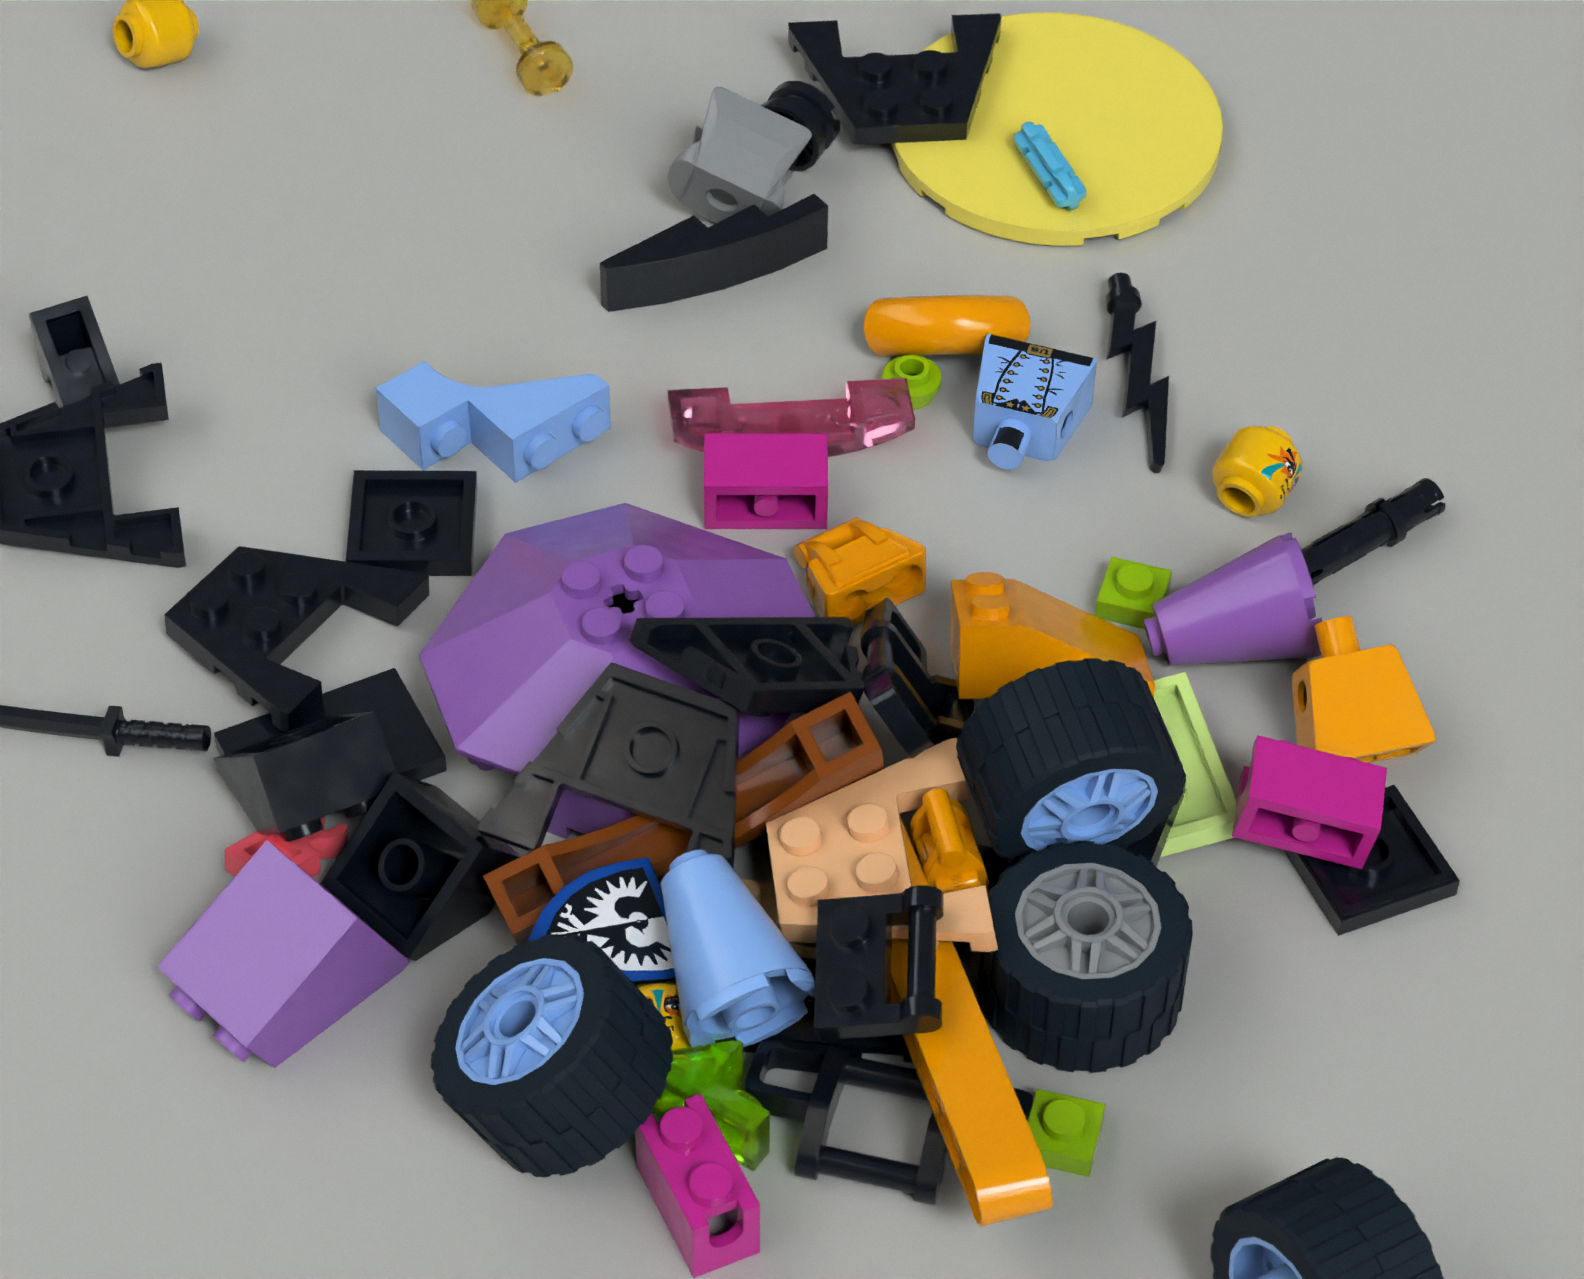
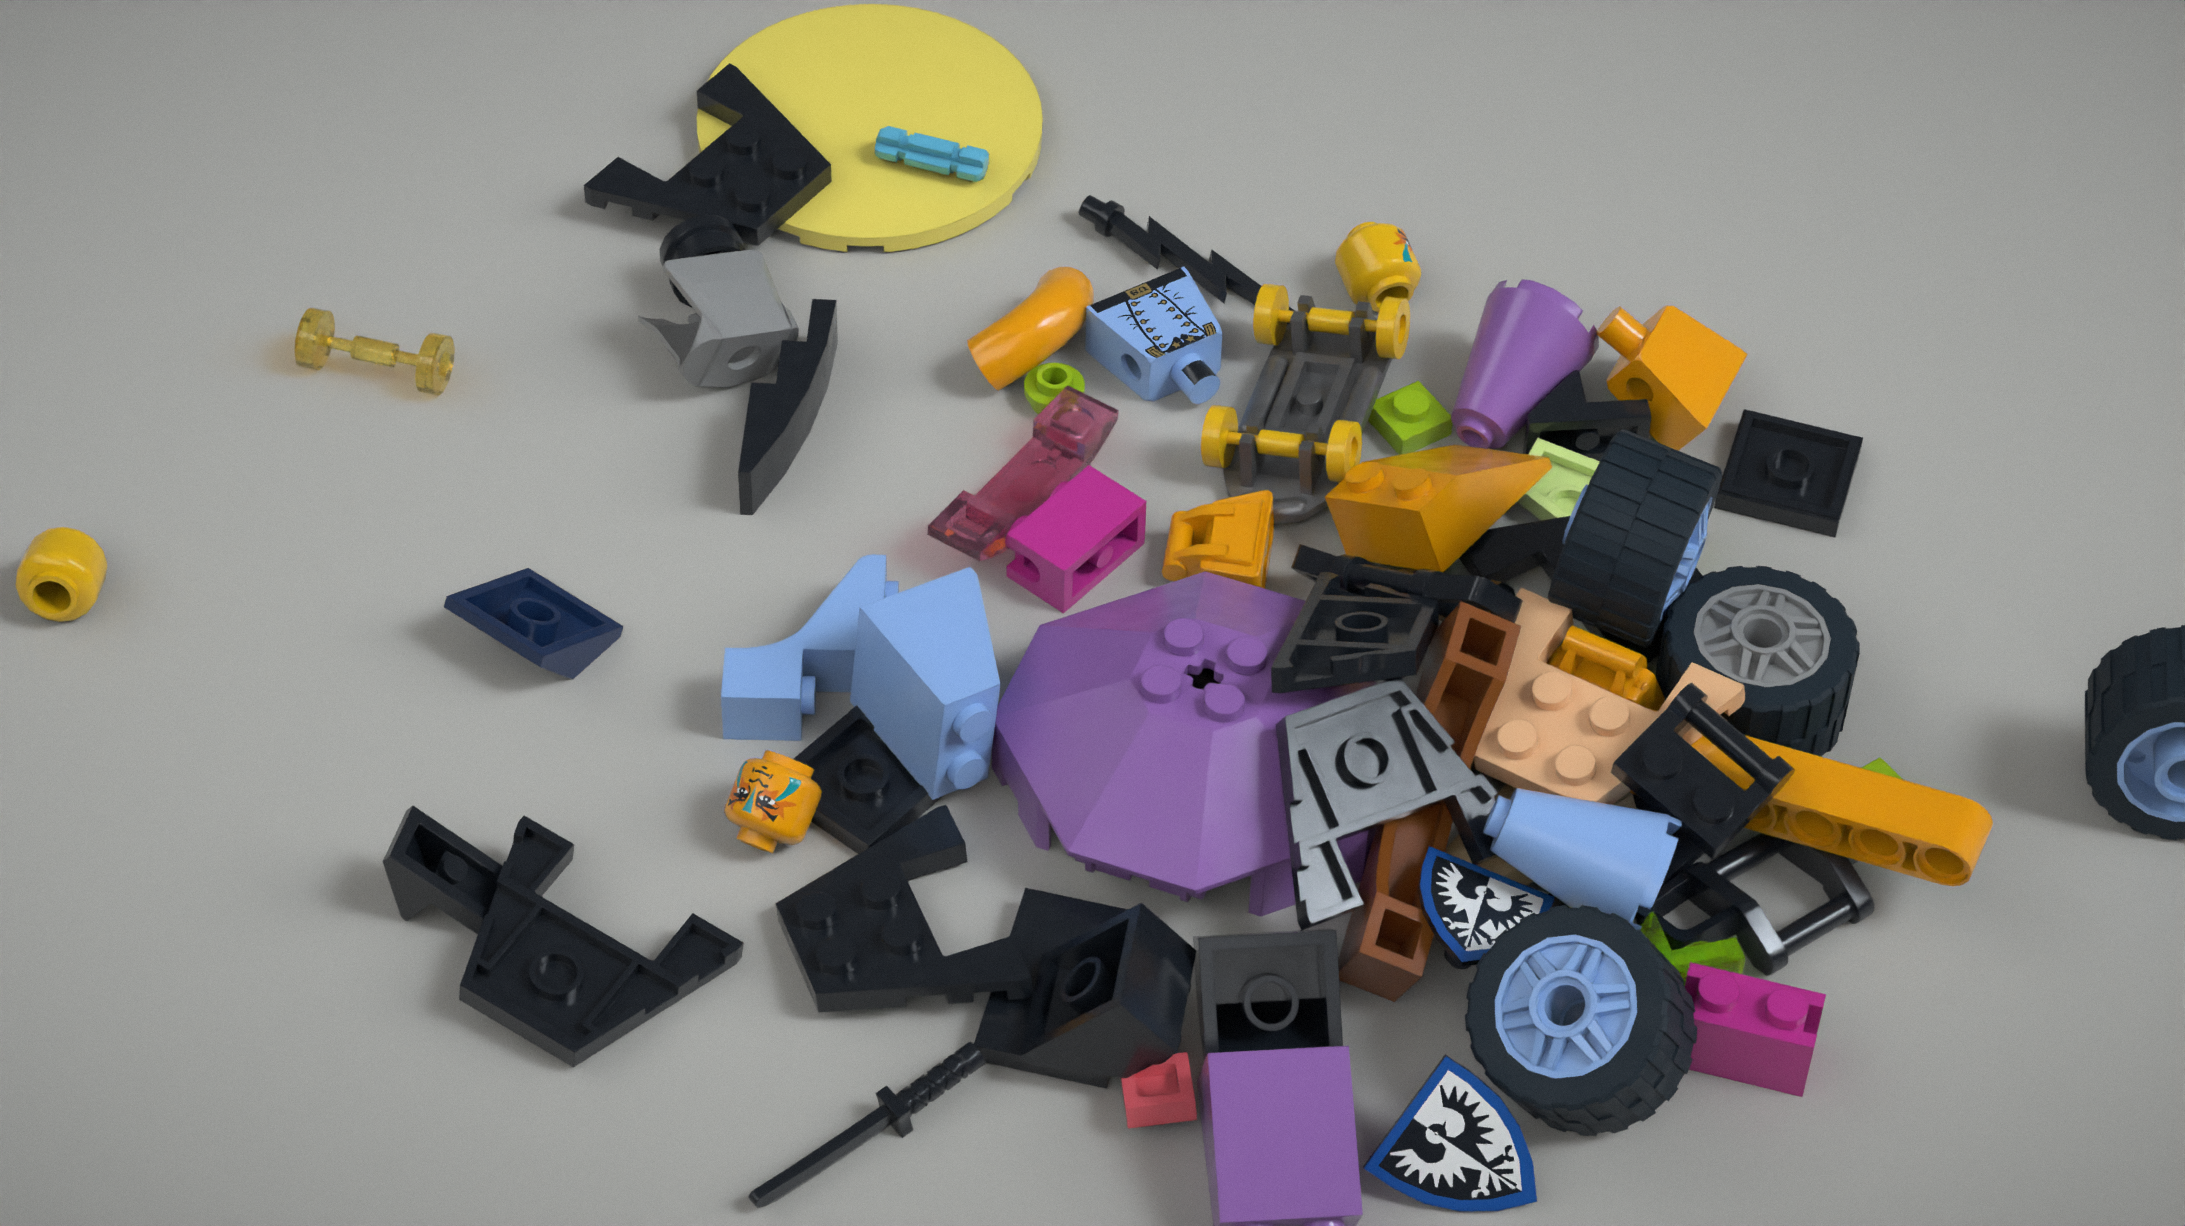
camera: 50 degrees left, 0 degrees up
(321, 480) = (772, 801): none -> light orange head
(364, 265) = (537, 621): none -> dark blue slope
(379, 1068) = (1456, 1146): none -> shield
(509, 471) = (930, 680): none -> light blue slope
(1063, 521) = (1308, 401): none -> flat silver piece
(1237, 689) = (1582, 425): none -> black slope
(1310, 802) = (1756, 445): dark pink brick -> none
(1380, 525) = (1494, 242): black pin -> none

